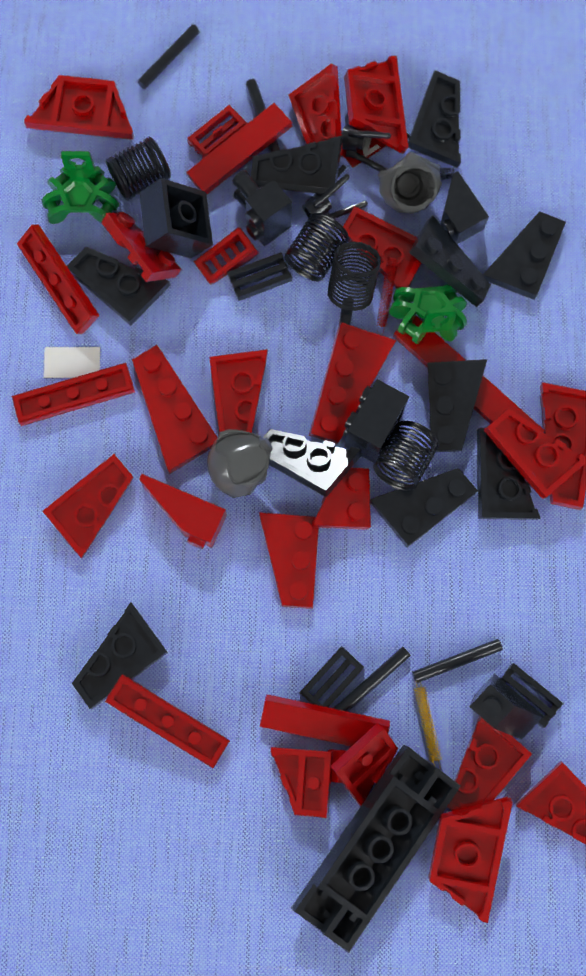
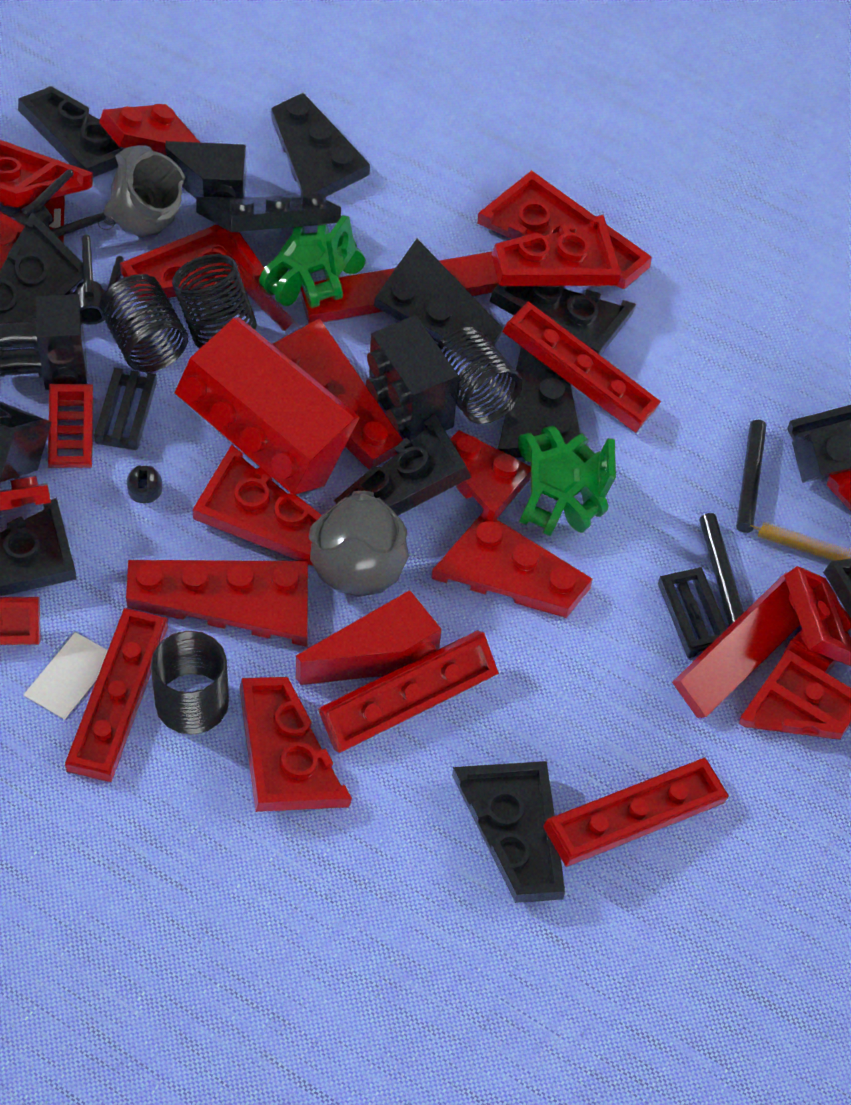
camera: 60 degrees left, 20 degrees down
(81, 410) = (183, 655): none -> black piece
(167, 548) = (408, 691): none -> red tile
(219, 323) = (154, 484): none -> black hinge
(298, 352) = (267, 407): none -> red slope
(368, 549) = (562, 473): none -> green piece
(462, 513) = (581, 366): none -> red tile
(467, 156) = (145, 126): none -> red wing

